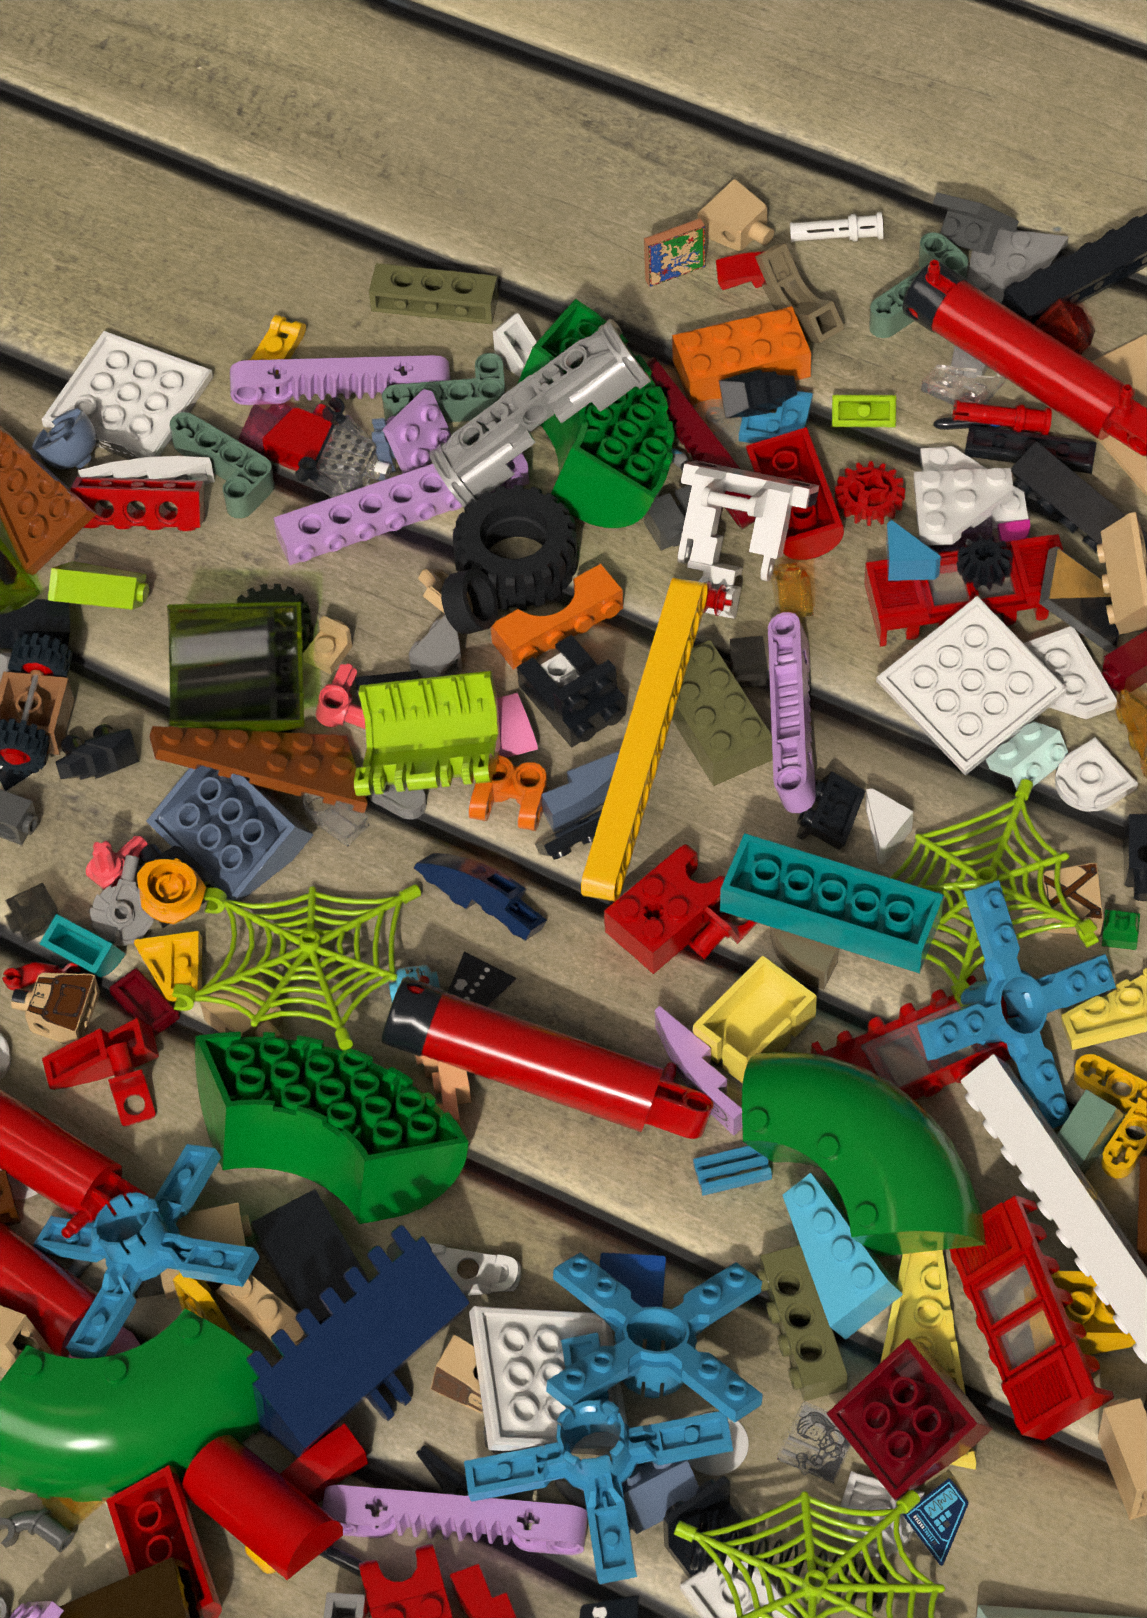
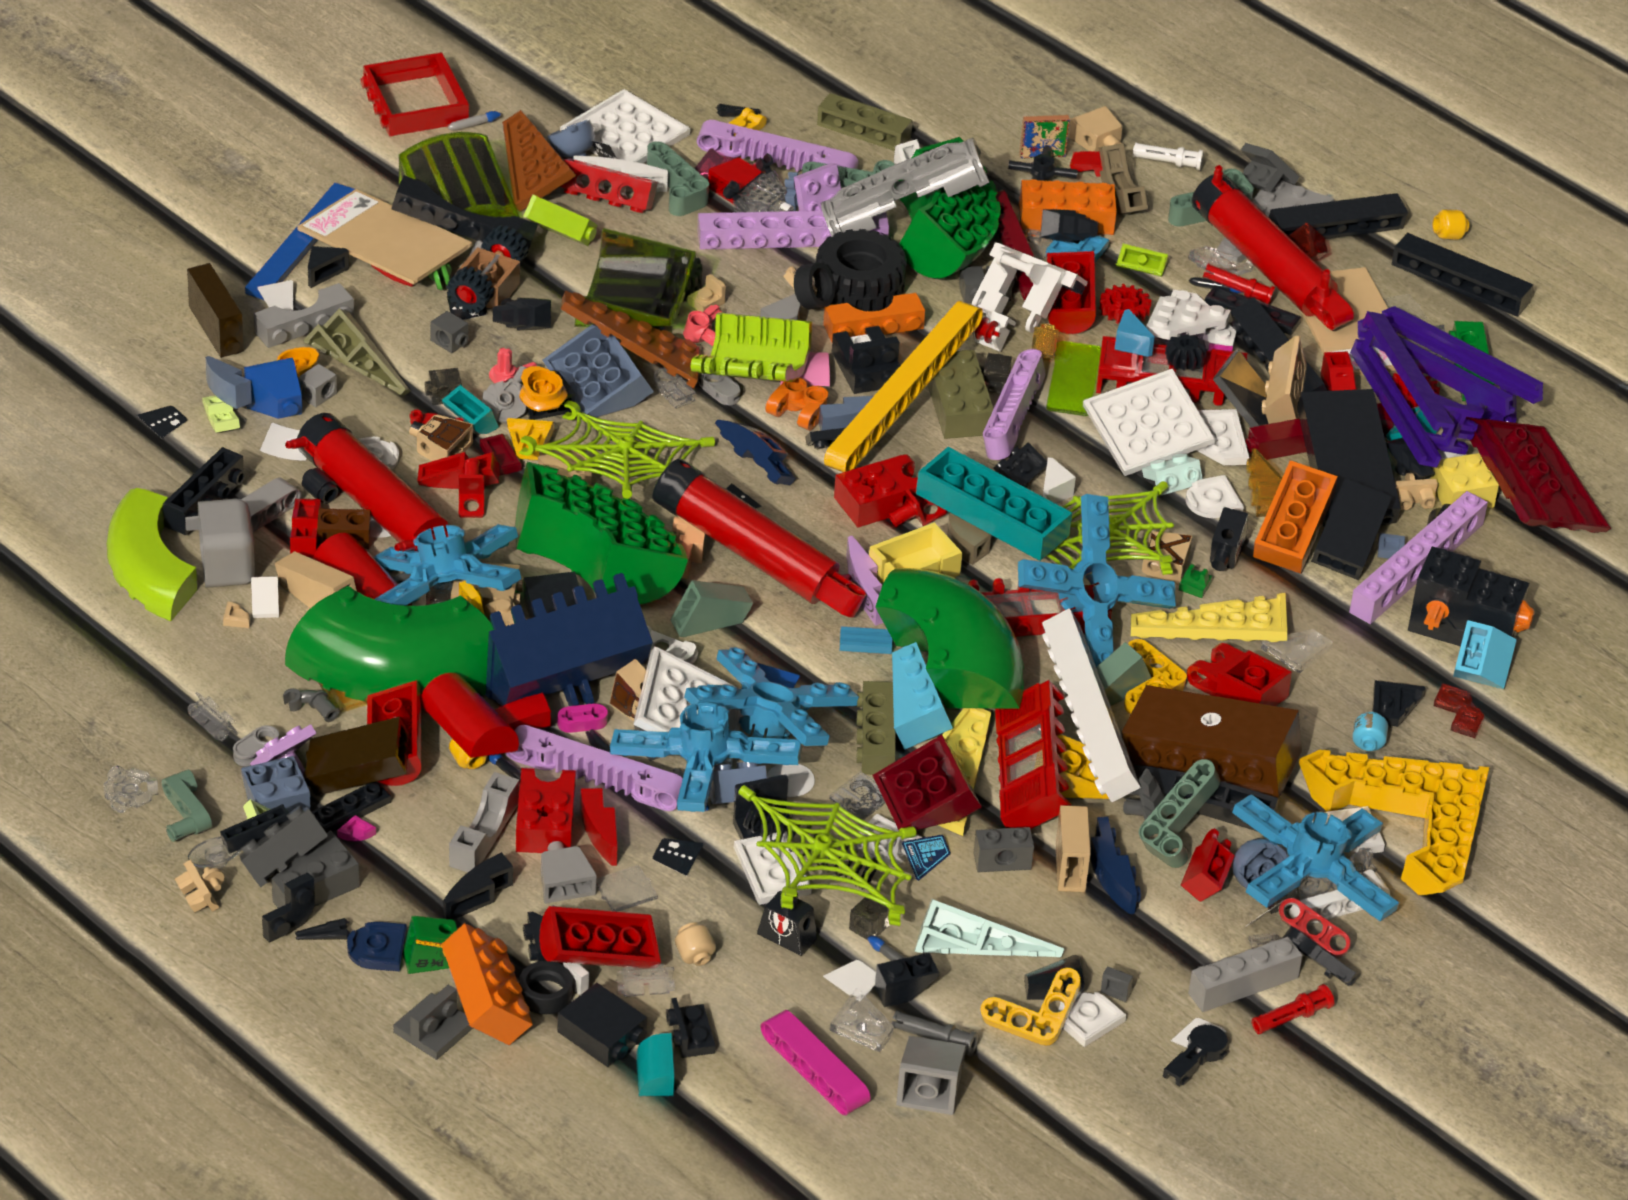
camera: 10 degrees right, 15 degrees down
(255, 322) = (732, 111): none -> black piece
(404, 1432) = (582, 718): none -> dark pink beam
(513, 1188) = (710, 607): none -> sand green slope
(687, 300) = (1043, 167): none -> black bar
(845, 633) = (1073, 377): none -> clear neon green piece
(1041, 1483) = (1003, 849): none -> dark grey brick

